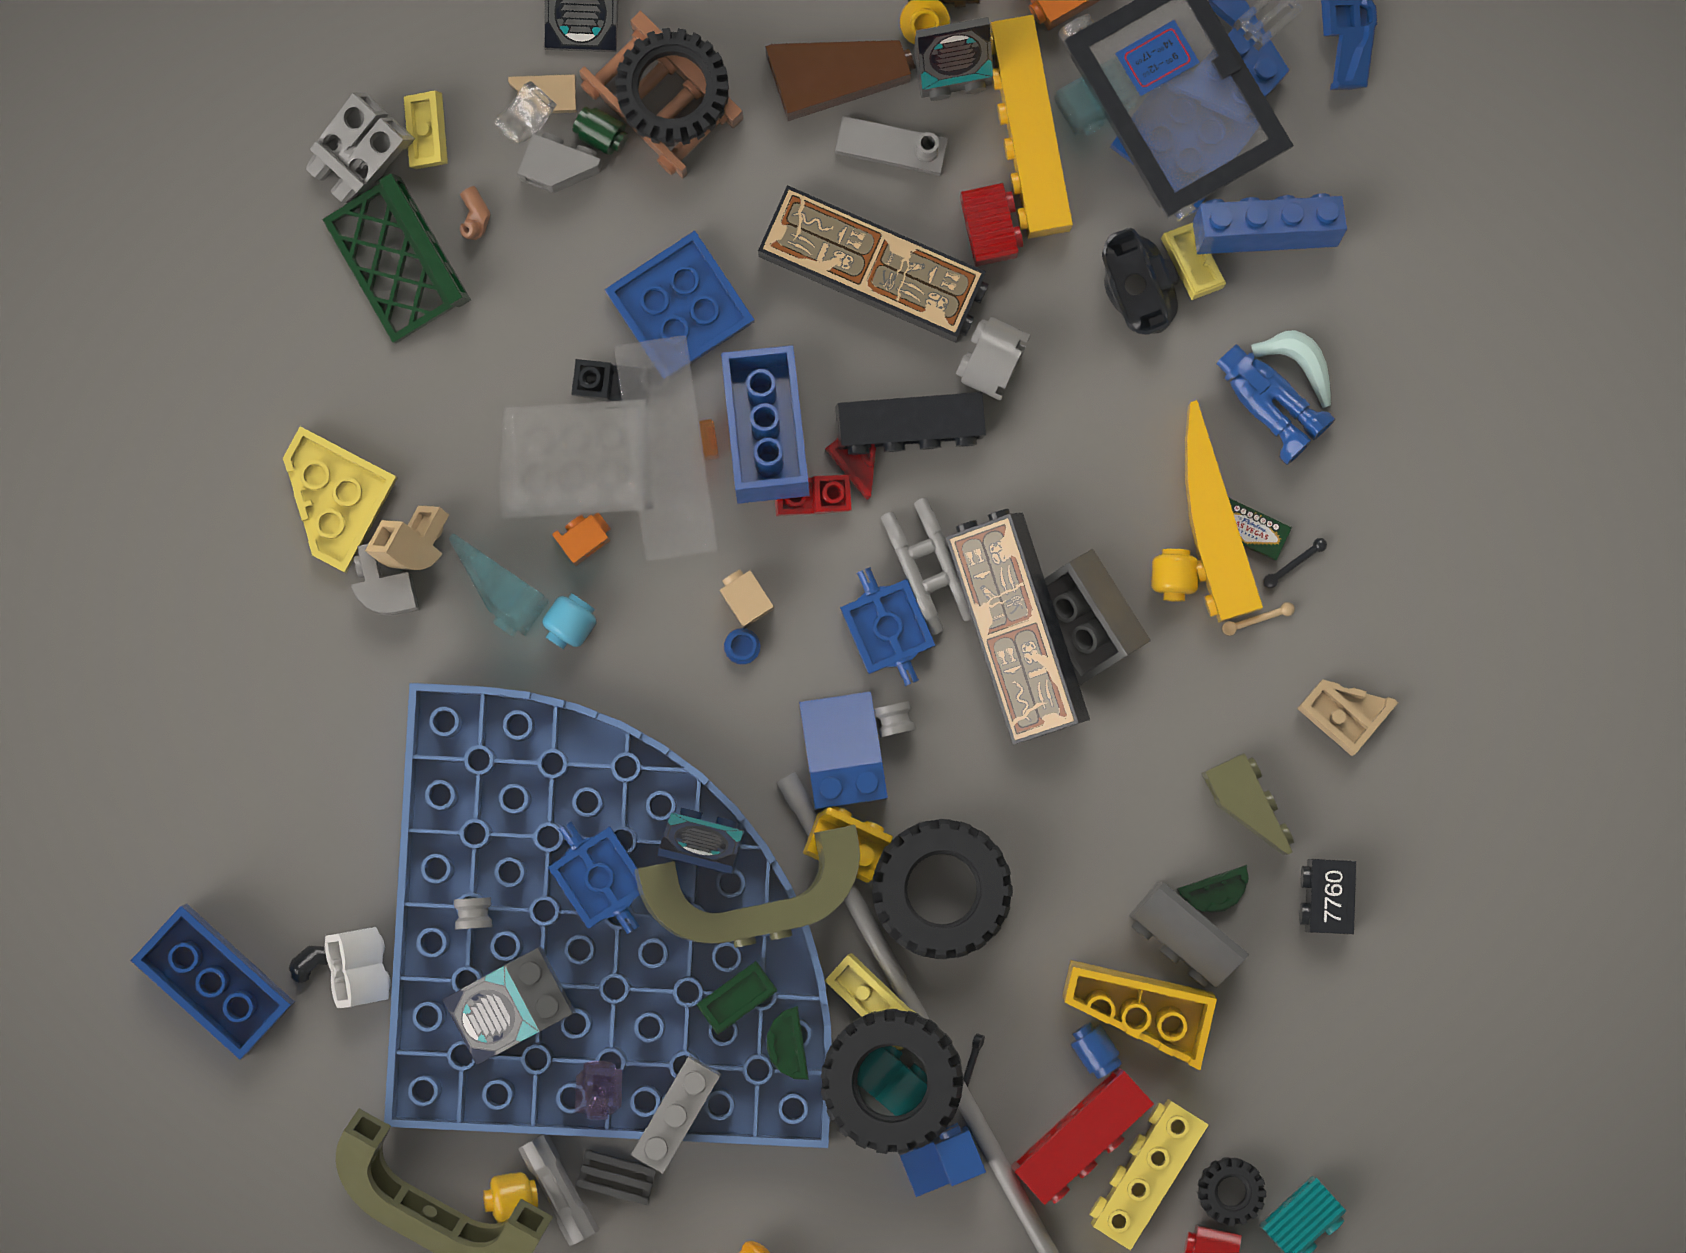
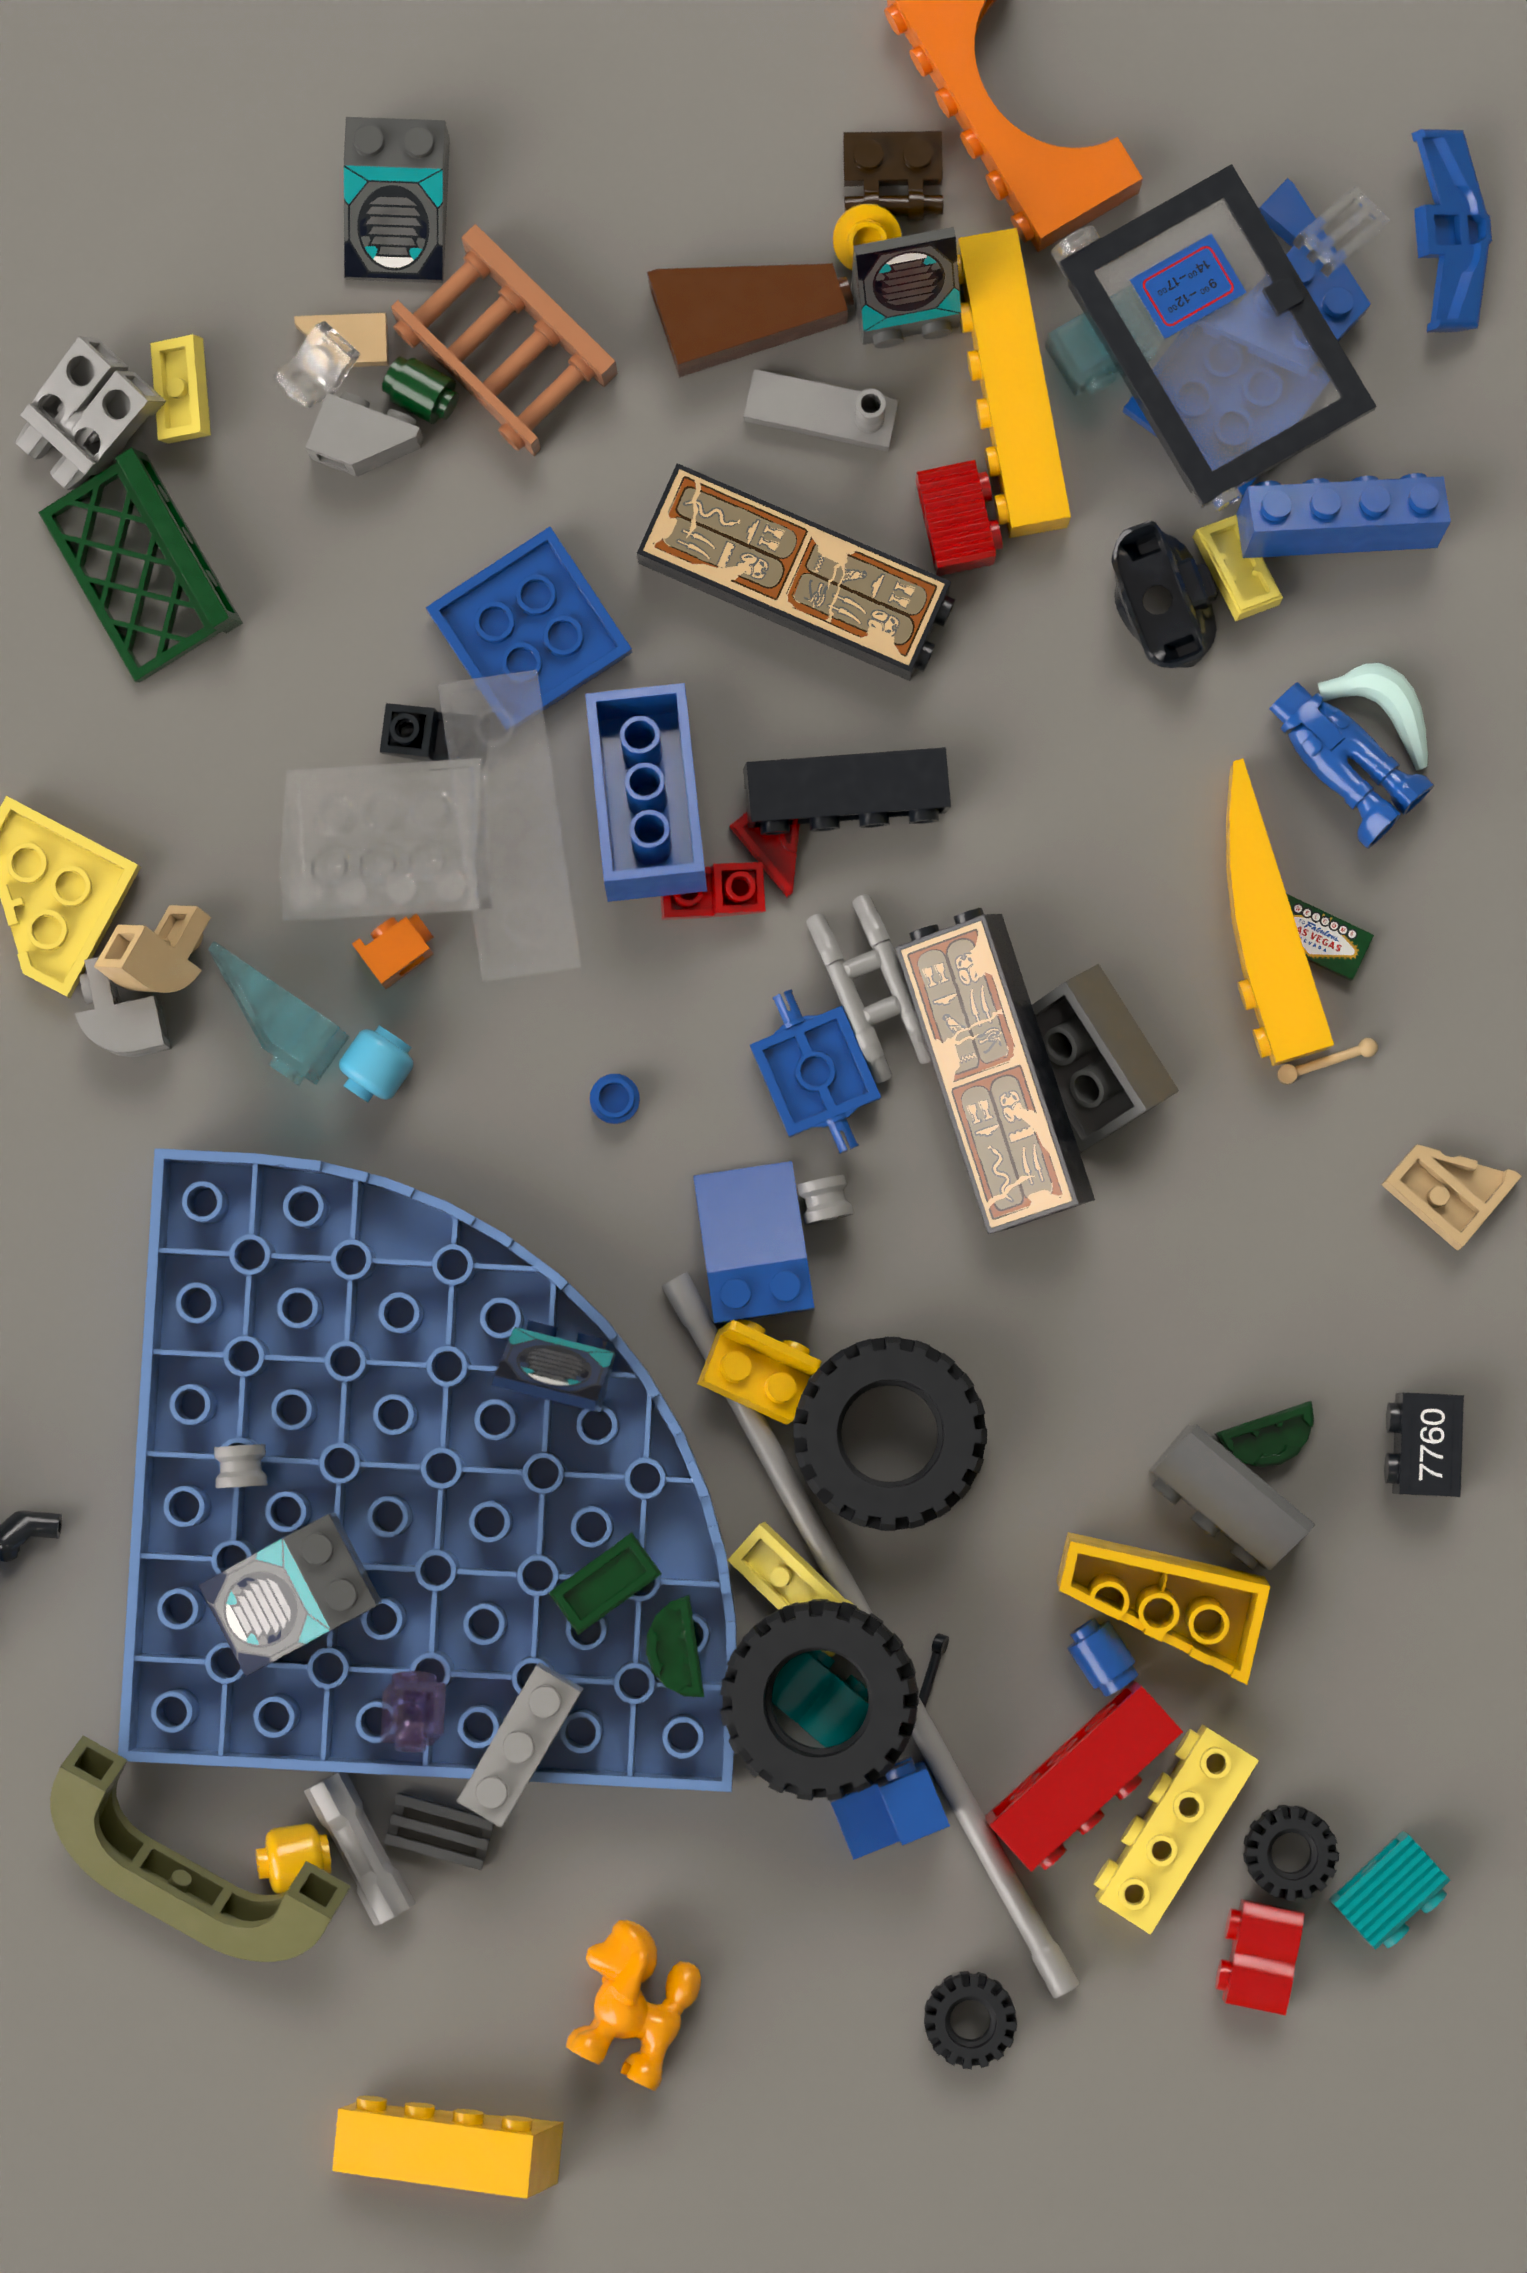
camera: 10 degrees right, 0 degrees up
(357, 967) = (82, 1541): white brick -> none
(478, 214) = (252, 508): nougat arm -> none
(597, 877) = (414, 1417): blue plate -> none
(663, 45) = (500, 272): black tyre -> none
(709, 439) = (569, 814): clear orange tile -> none
(746, 597) = (619, 1031): tan brick -> none
(836, 874) = (742, 1415): olive arch -> none
(993, 358) = (961, 699): light grey brick -> none
(1174, 574) = (1212, 999): yellow head -> none
(1239, 794) = (1304, 1306): olive slope -> none
(1271, 580) = (1345, 1008): black hinge -> none

